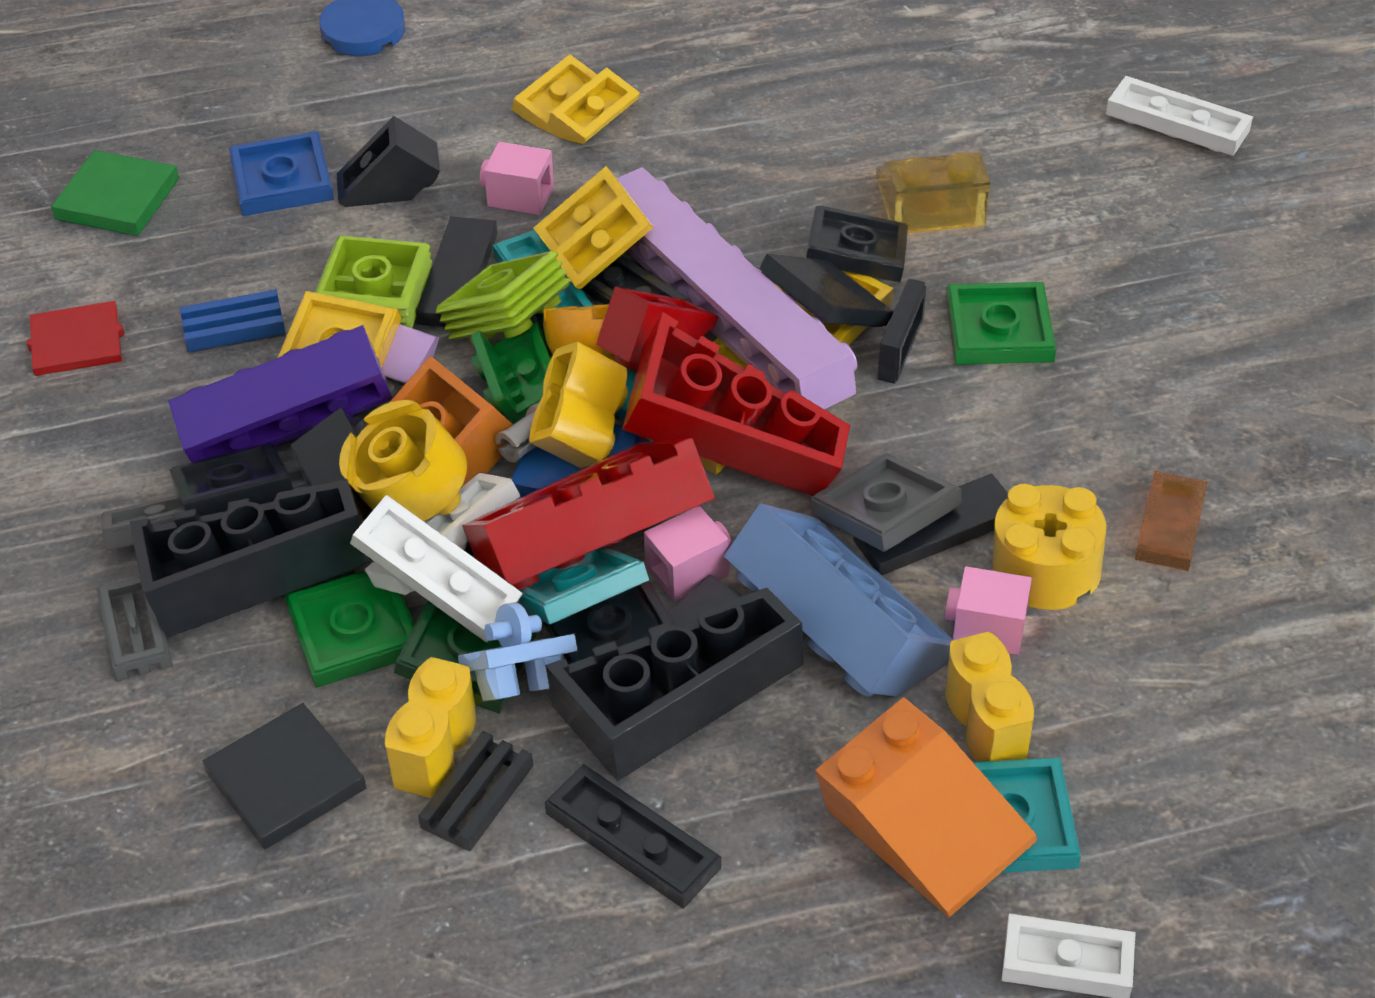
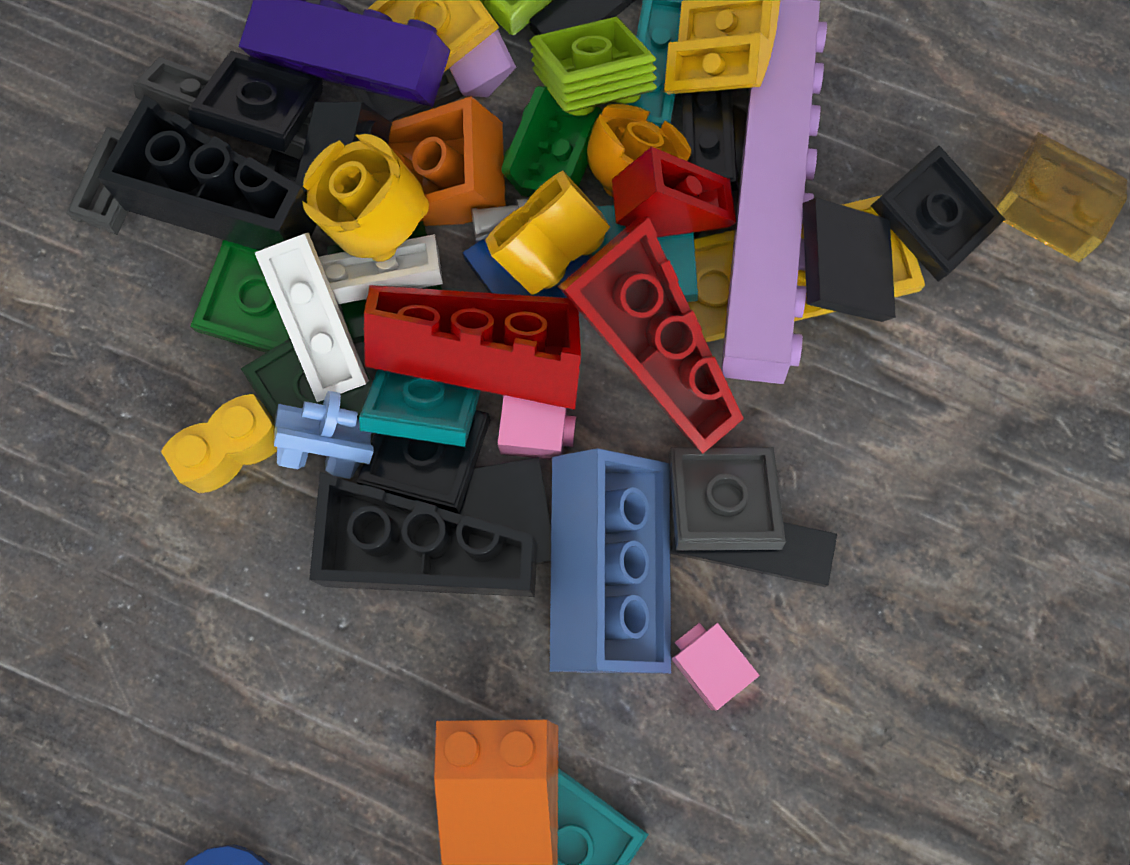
camera: 40 degrees right, 30 degrees up
(284, 775) = (111, 397): black tile -> none
(459, 778) = (228, 493): black tile -> none
(633, 836) = (298, 642): black tile -> none
(901, 331) = (894, 333): black tile -> none
(988, 699) = (628, 764): yellow brick -> none
(1000, 323) = (991, 381): green tile -> none
(1054, 539) = (844, 644): yellow brick -> none
(1171, 521) = (944, 688): clear orange tile -> none

